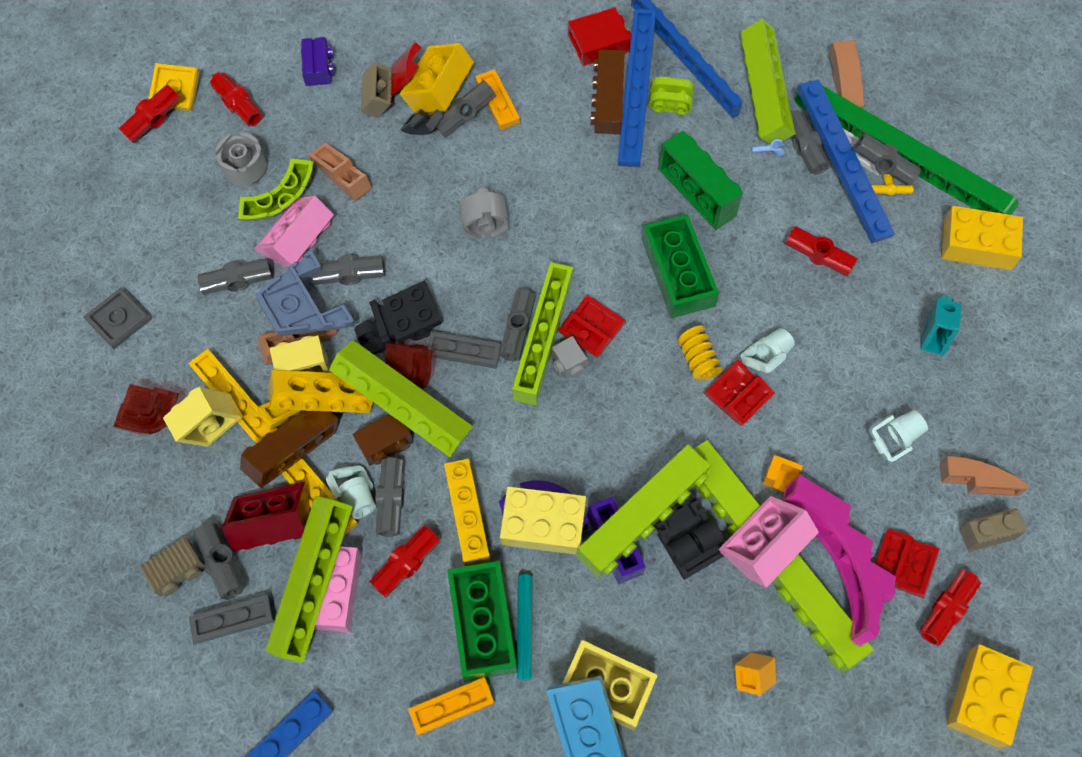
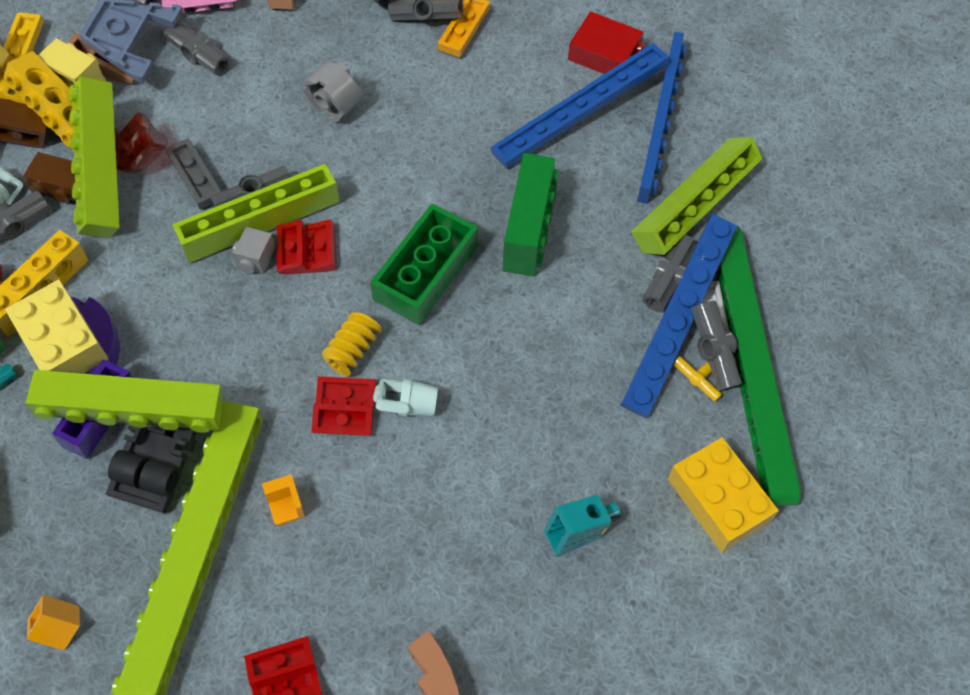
camera: 45 degrees right, 5 degrees down
(402, 317) = (180, 109): black plate -> none
(609, 92) = (554, 88): reddish brown brick -> none
(671, 95) = (603, 137): lime brick -> none
(769, 540) = (184, 529): bright pink slope -> none
(772, 147) = (638, 251): light blue hand -> none
(810, 244) = (565, 380): red piece -> none
(847, 71) = (783, 252): nougat slope -> none
(865, 582) = (222, 652): dark pink arch -> none
(903, 430) = (424, 574): light aqua piece -> none

